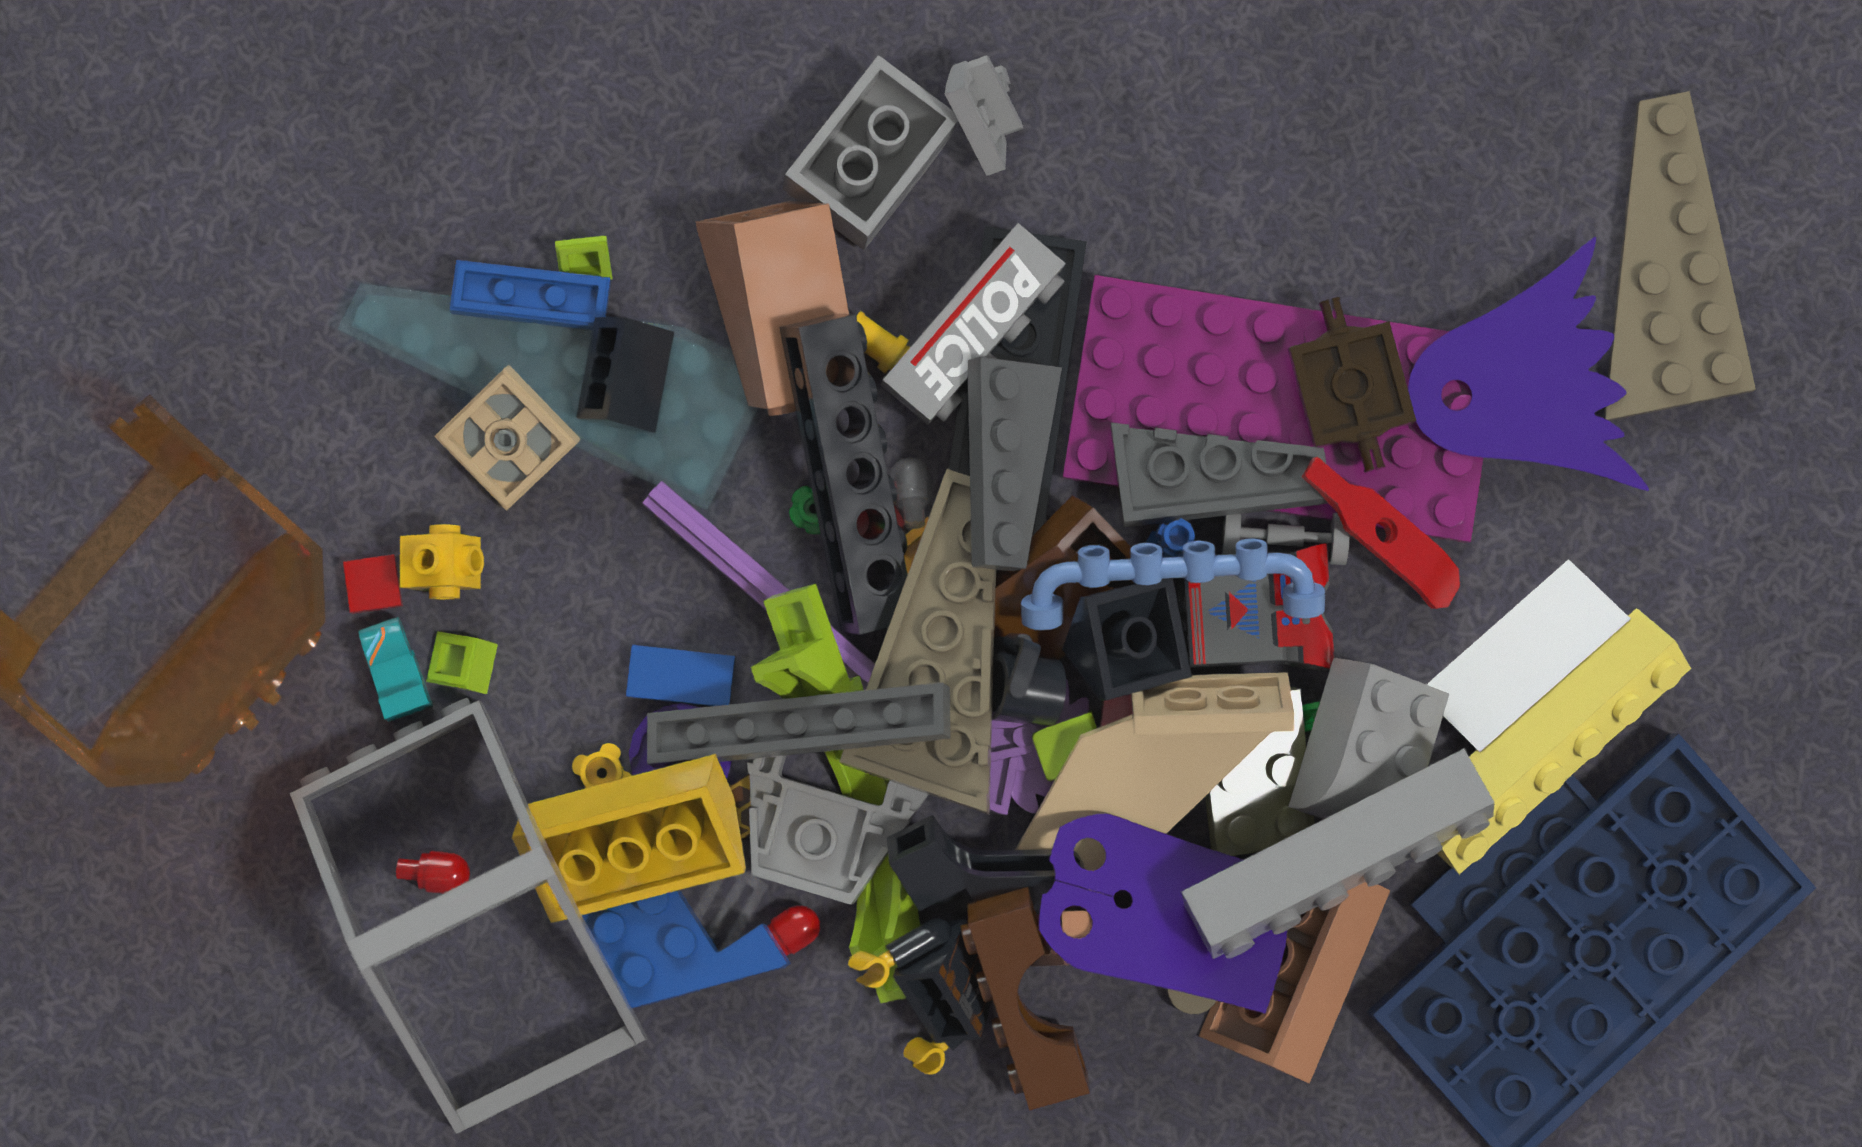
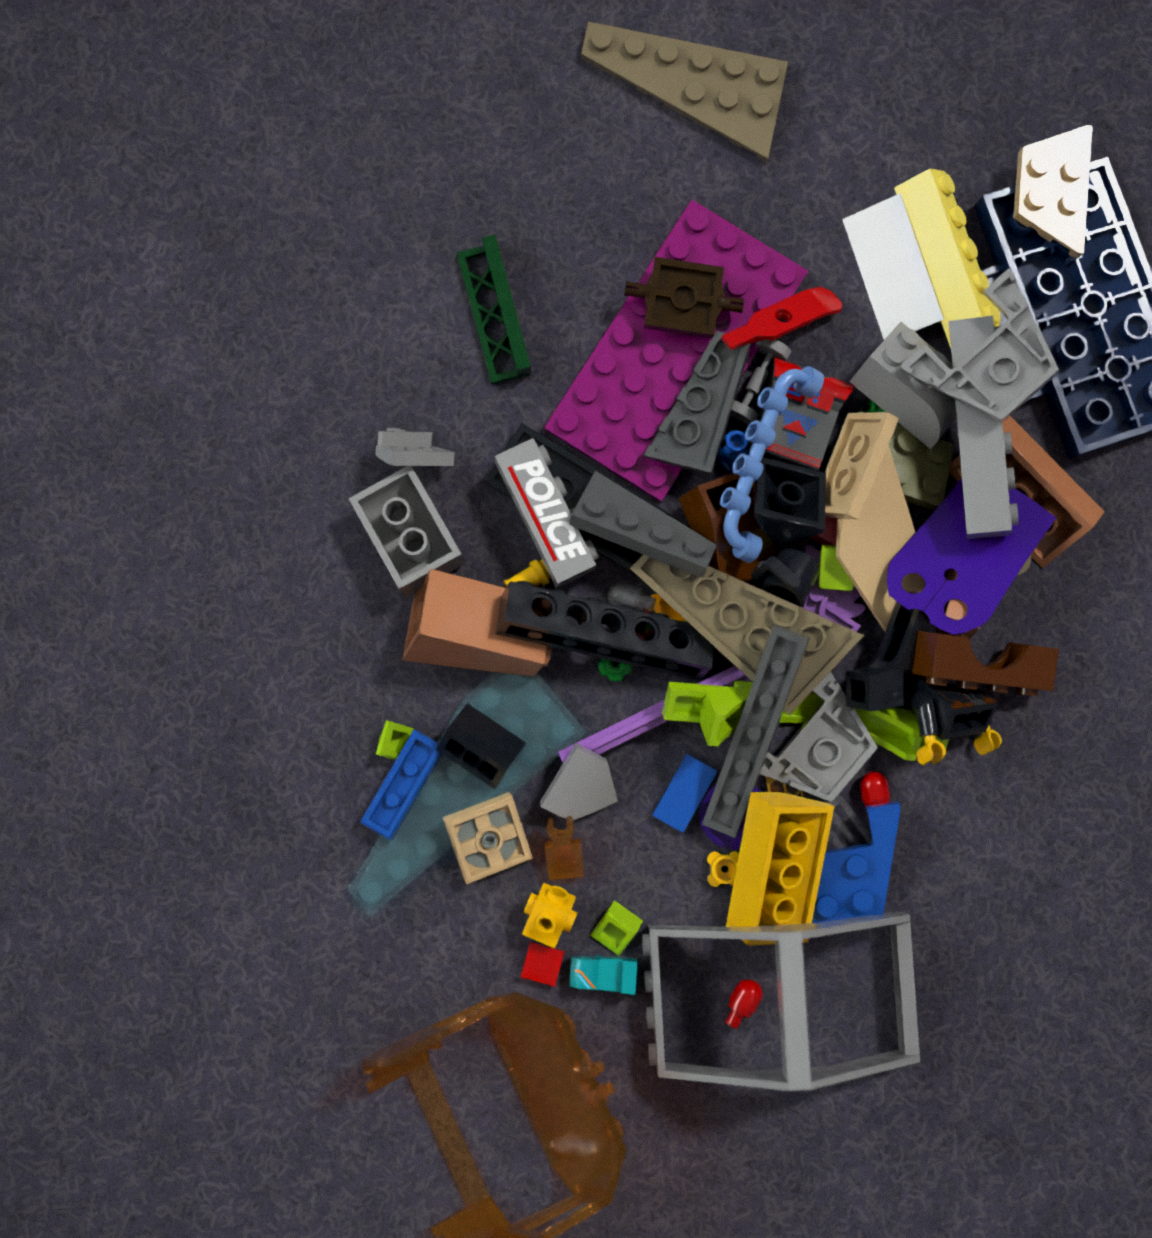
camera: 60 degrees left, 0 degrees up
(528, 547) = (563, 854): none -> clear orange plate
(629, 531) = (580, 785): none -> light grey slope
(1238, 152) = (504, 301): none -> dark green fence
(1425, 842) = (1002, 368): none -> light grey wing
(1527, 381) = (725, 193): dark purple piece -> none
(1733, 829) = (1054, 188): none -> wing

